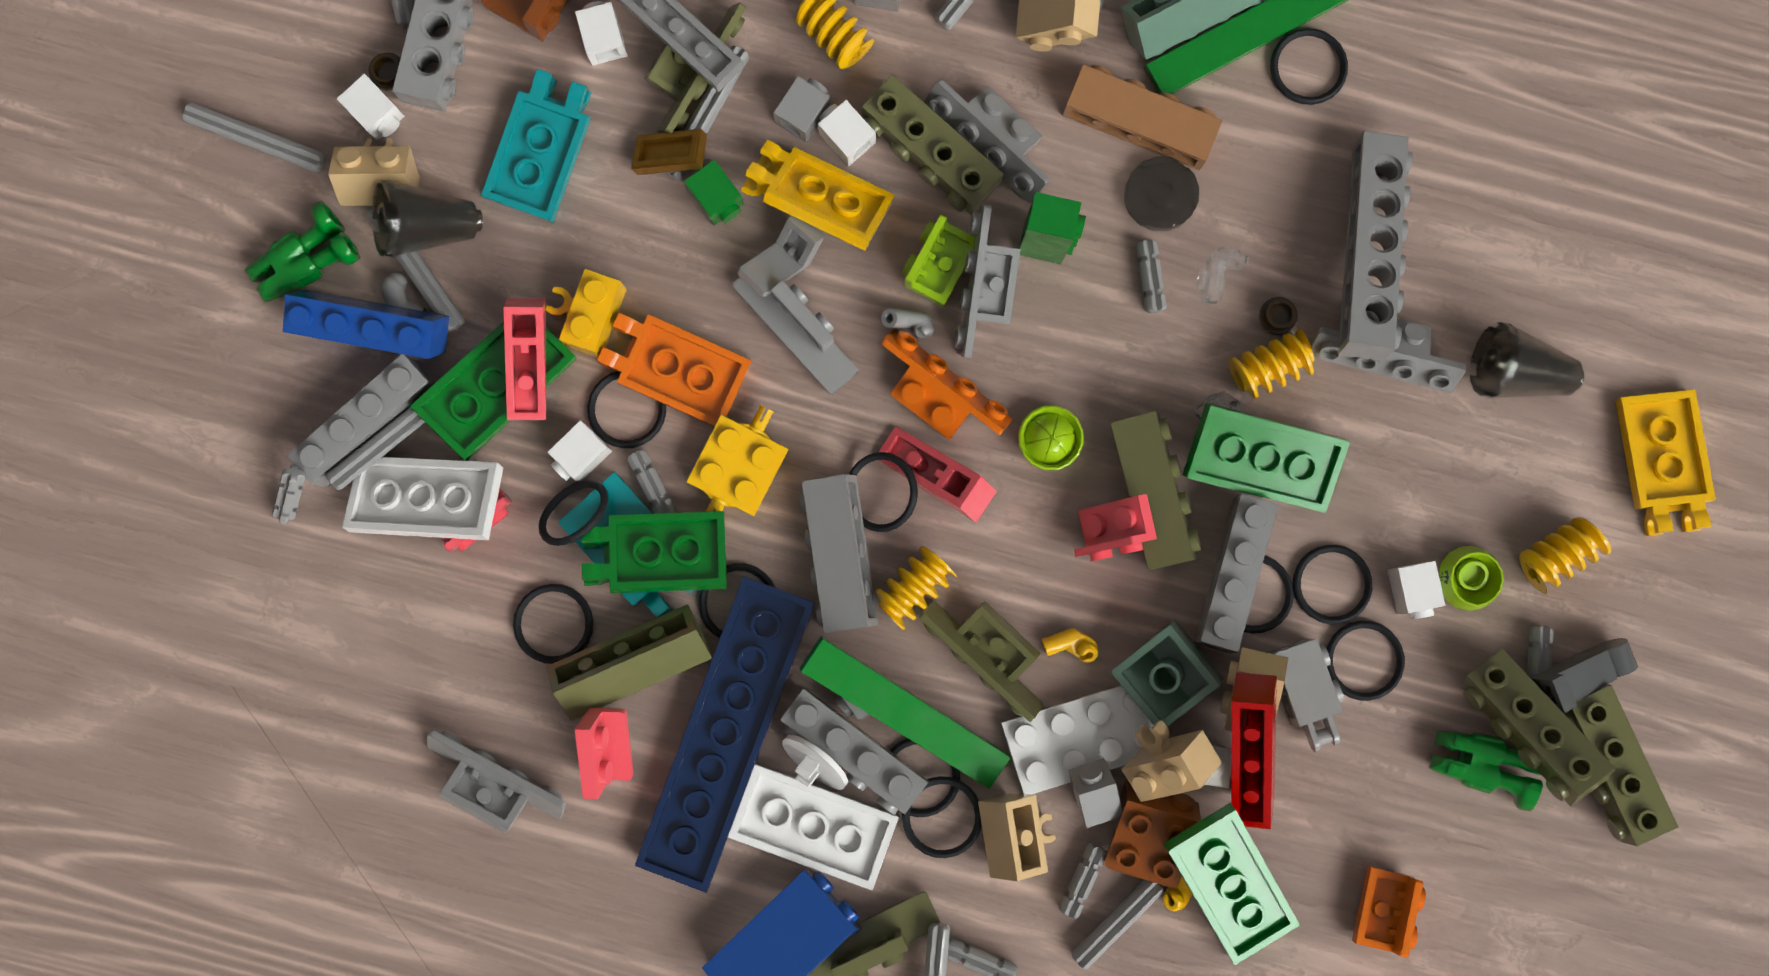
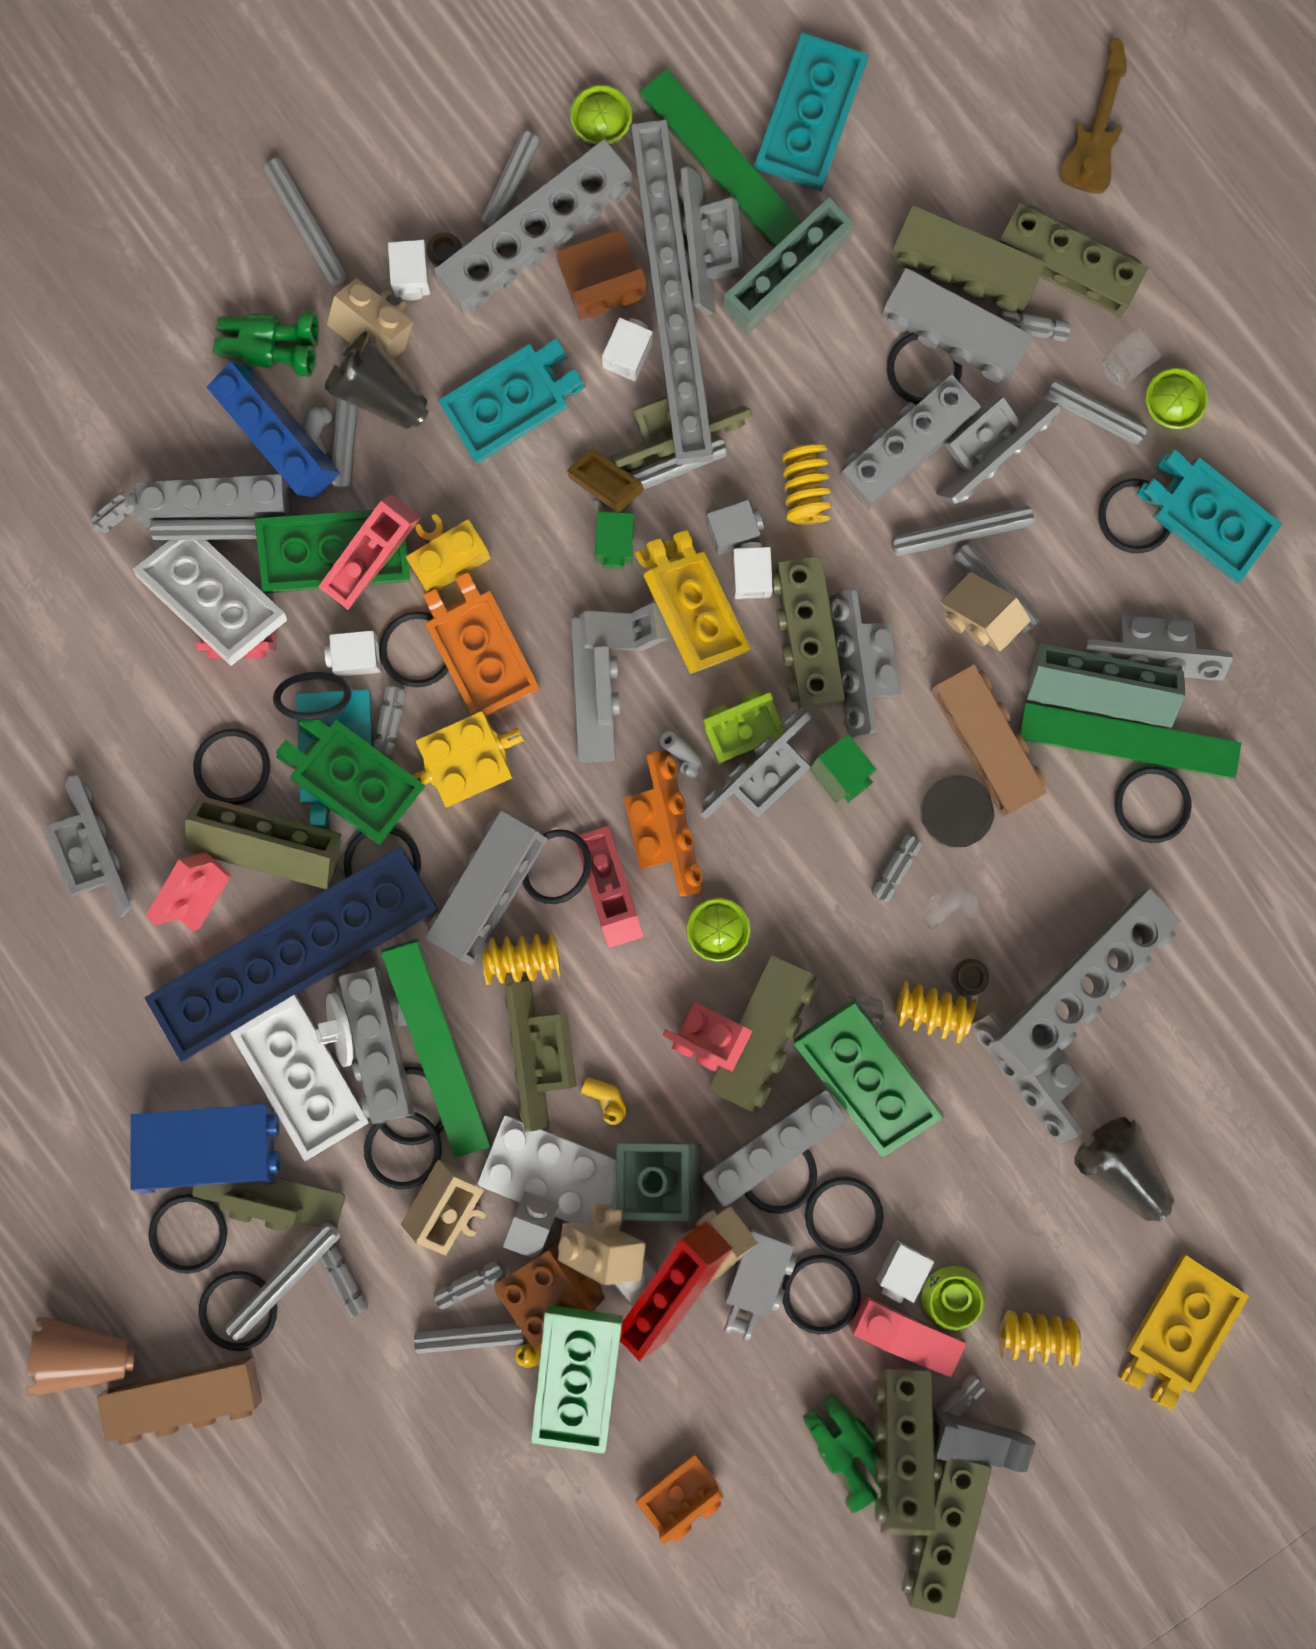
camera: 40 degrees right, 0 degrees up
(1457, 638) = (906, 1336): none -> coral slope

